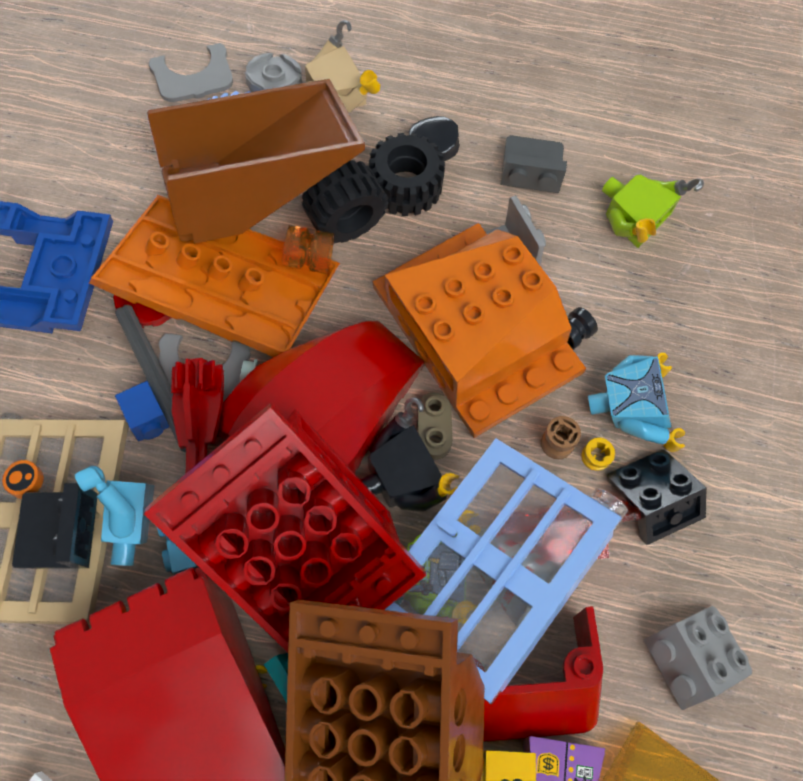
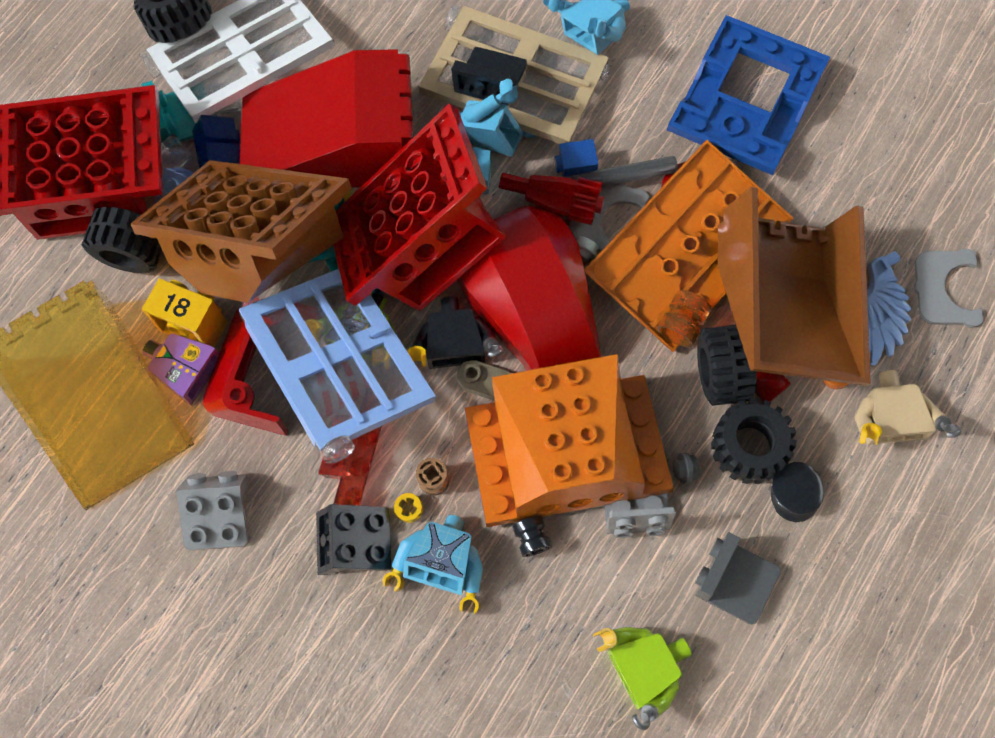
camera: 120 degrees right, 5 degrees up
(22, 478) = (543, 65): orange tile -> none
(272, 72) = (923, 359): light grey tile -> none
(450, 223) = (686, 468): none -> dark grey plate

